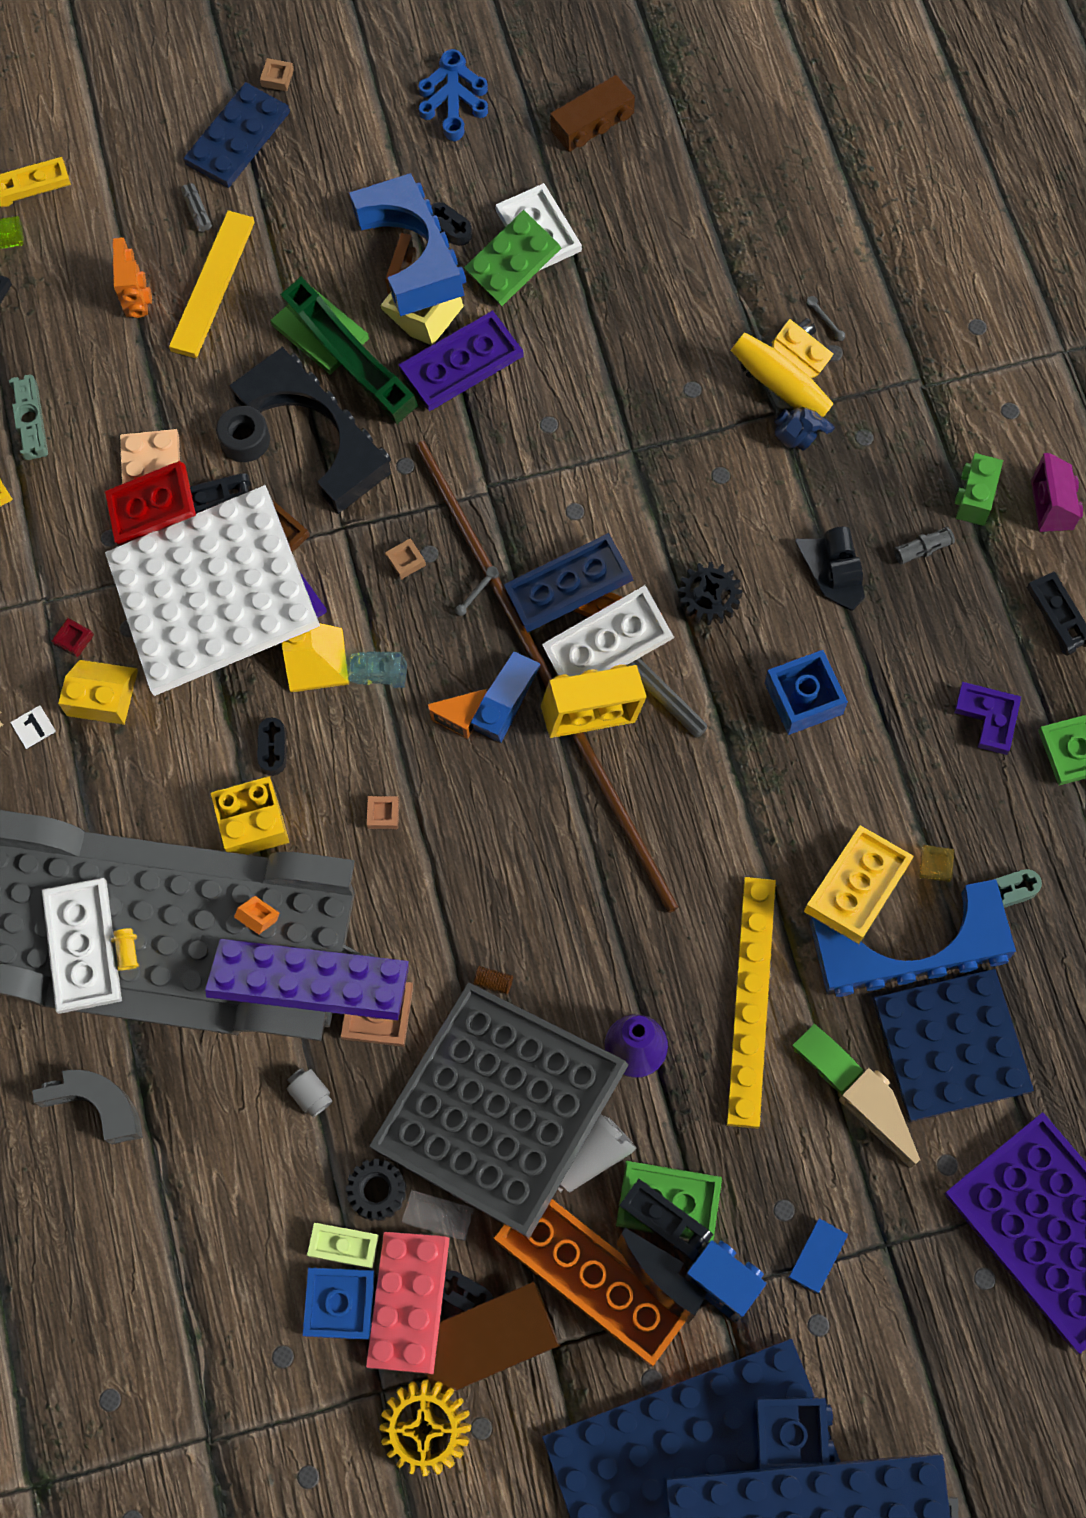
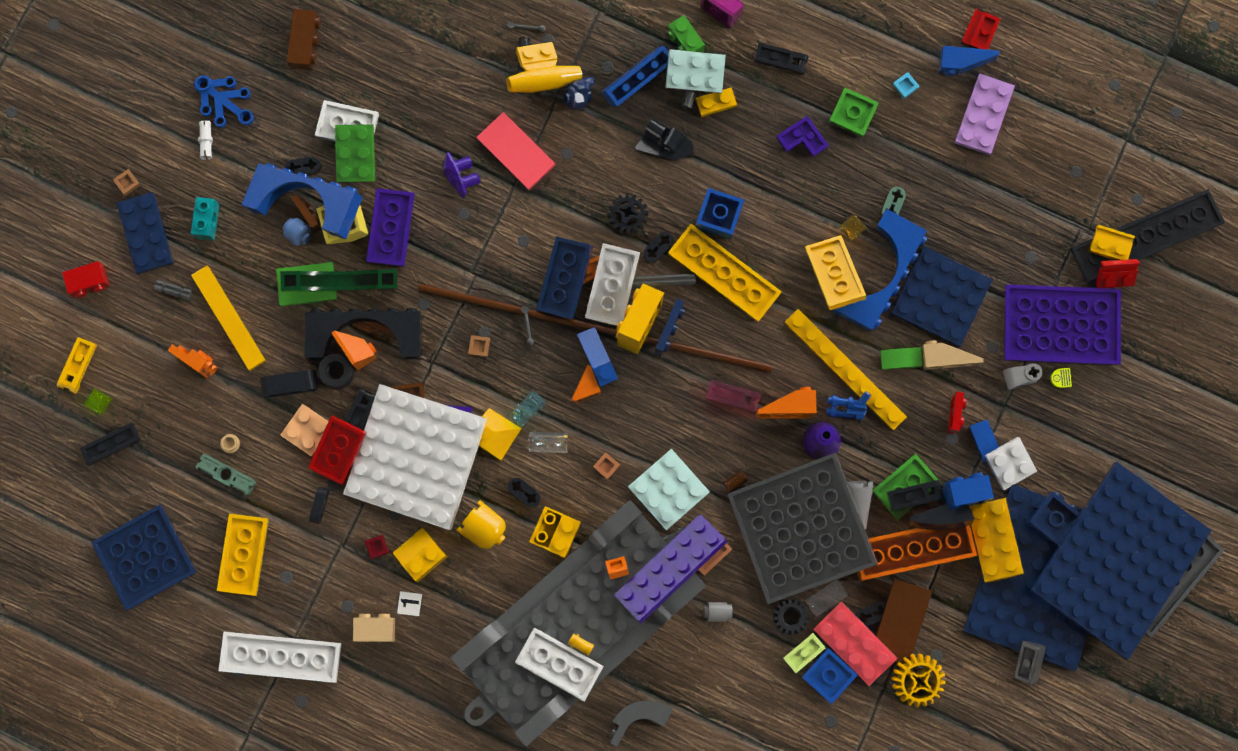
camera: 50 degrees left, 10 degrees up
(68, 393) = (230, 443): none -> tan plate
(70, 537) = (319, 505): none -> black beam
(133, 117) = (85, 279): none -> red brick
(187, 397) = (288, 383): none -> black beam
(187, 727) = (483, 527): none -> yellow cylinder
(282, 431) = (356, 349): none -> orange slope
(302, 174) = (205, 219): none -> teal brick
(355, 723) = (548, 442): none -> clear plate
(370, 272) = (297, 231): none -> medium blue head
(392, 110) = (205, 140): none -> white pin
(416, 909) = (668, 489): none -> light aqua plate
(586, 367) = (451, 171): none -> dark purple connector
(597, 890) = (733, 396): none -> clear pink plate
(614, 747) = (670, 328): none -> dark blue plate
(645, 966) = (796, 405): none -> orange slope
(671, 419) = (515, 151): none -> coral tile
(696, 1378) = (996, 541): none -> yellow plate
(702, 660) = (661, 250): none -> black beam
(711, 1052) = (854, 409): none -> blue piece
(740, 759) = (724, 273): none -> yellow plate
(809, 1192) = (956, 422): none -> red plate
(817, 1314) = (1010, 463): none -> white plate
(882, 471) = (636, 77): none -> blue brick
(937, 585) = (716, 102): none -> yellow plate
(941, 1230) = (1018, 376): none -> light grey piece
(949, 525) = (695, 71): none -> light aqua plate
(989, 1290) = (1061, 378): none -> neon yellow tile

